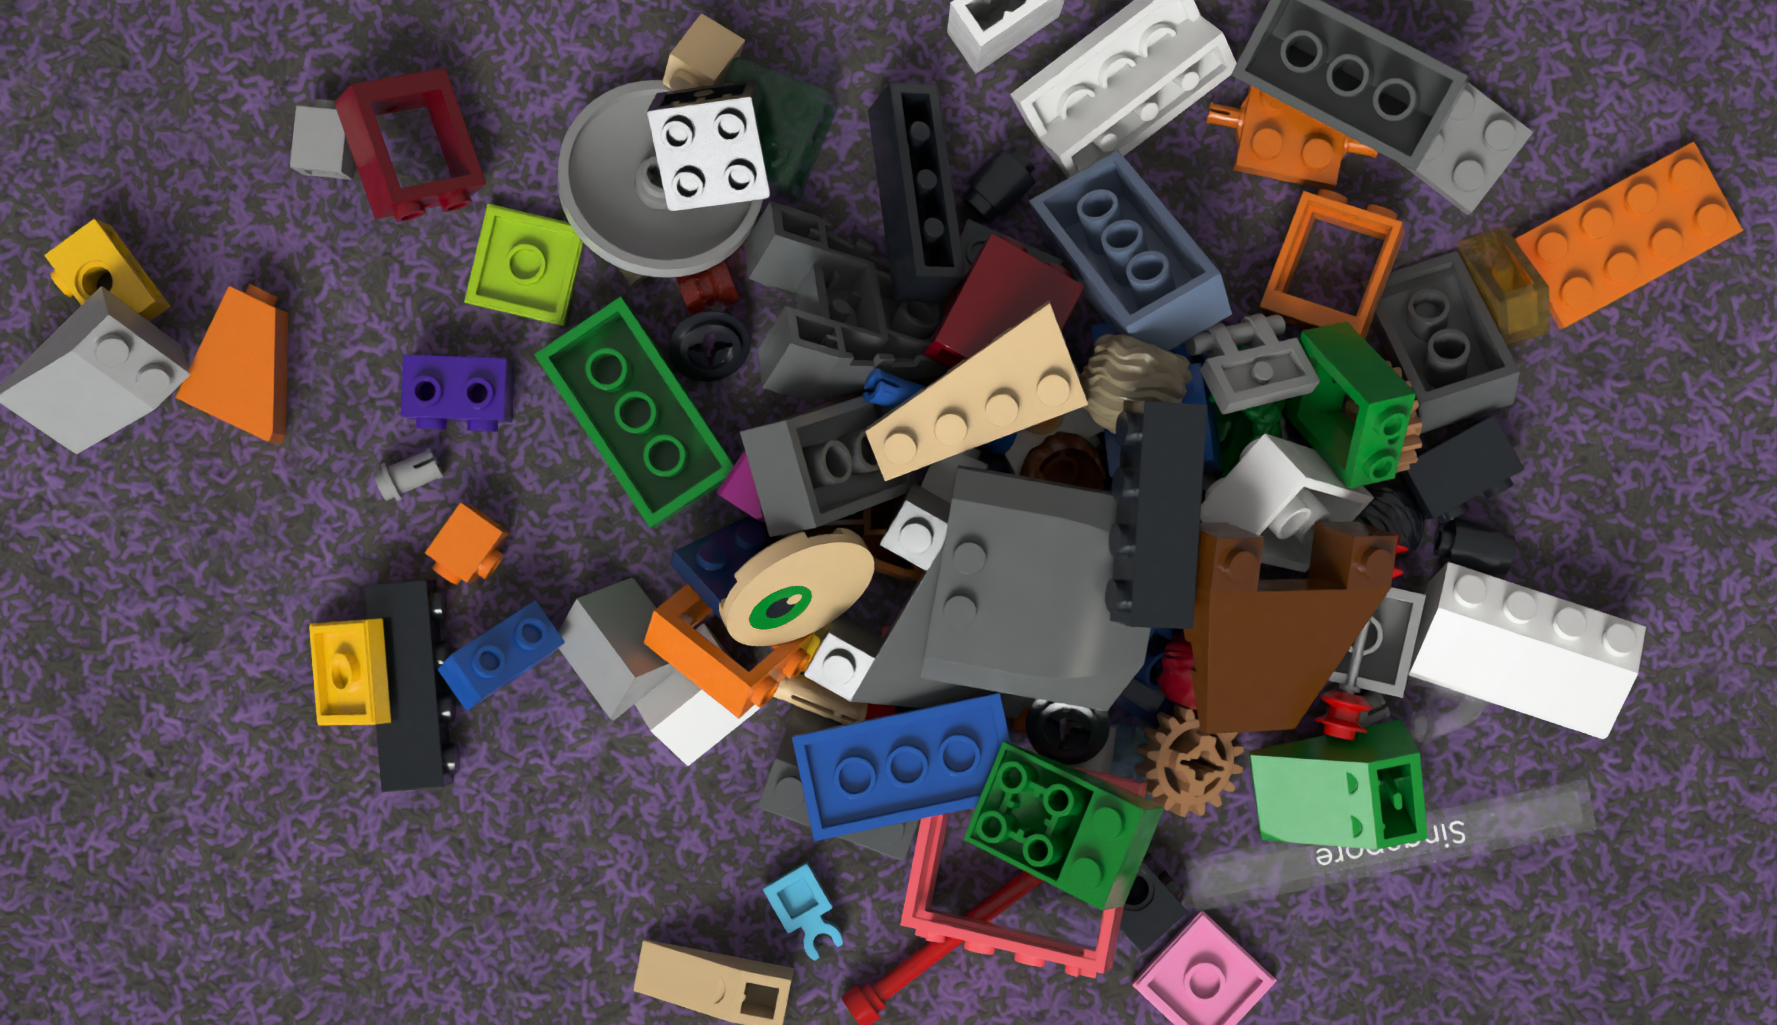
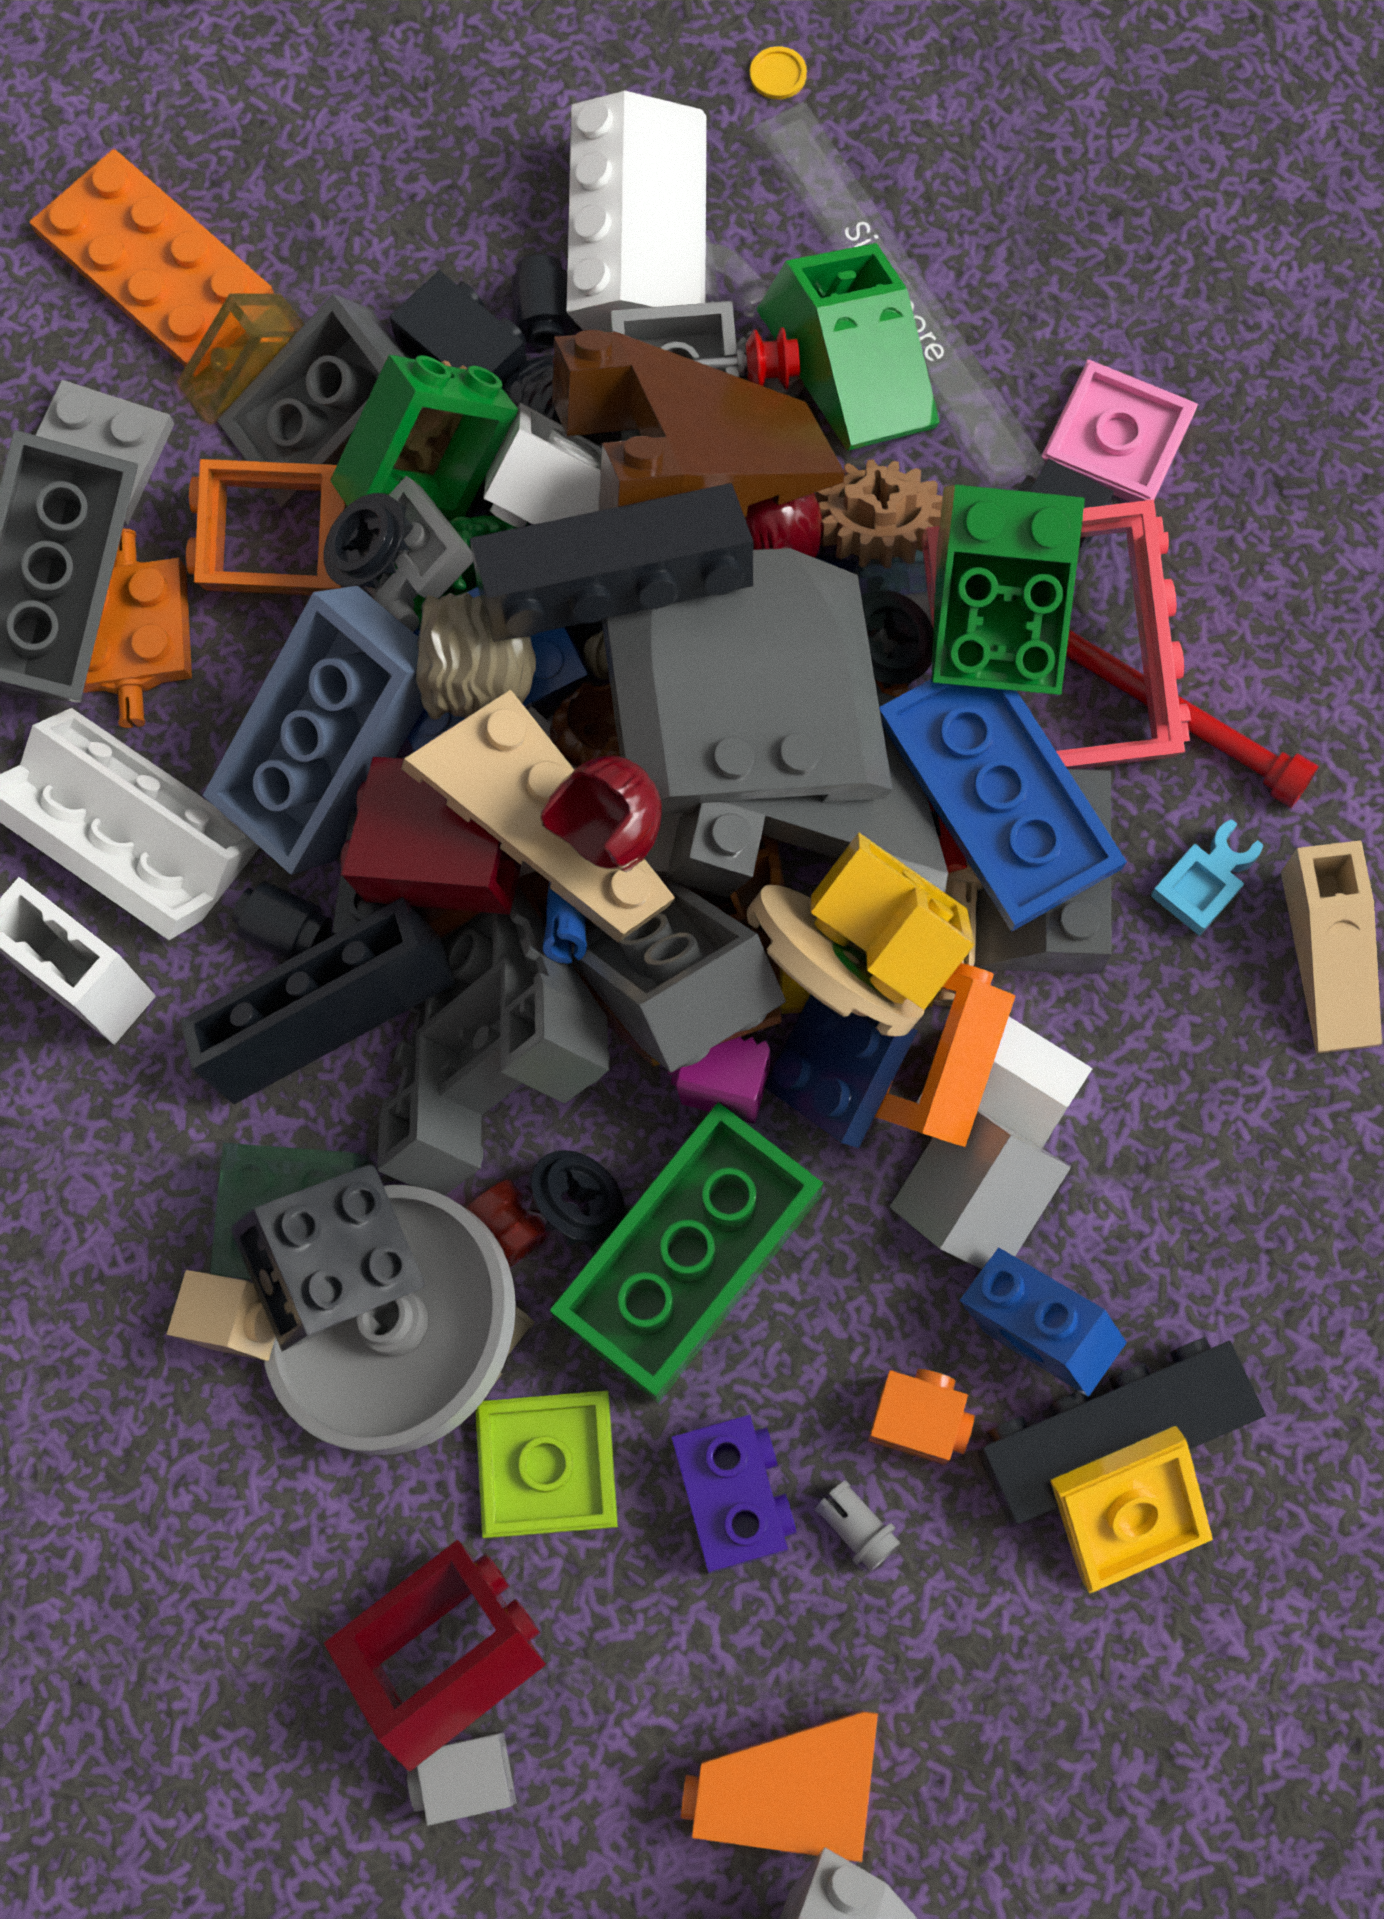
camera: 105 degrees left, 15 degrees down
(807, 647) = (899, 918): none -> yellow brick
(949, 445) = (606, 812): none -> dark red hair
(1284, 324) = (353, 533): none -> black gear
(1637, 818) = (778, 72): none -> yellow piece

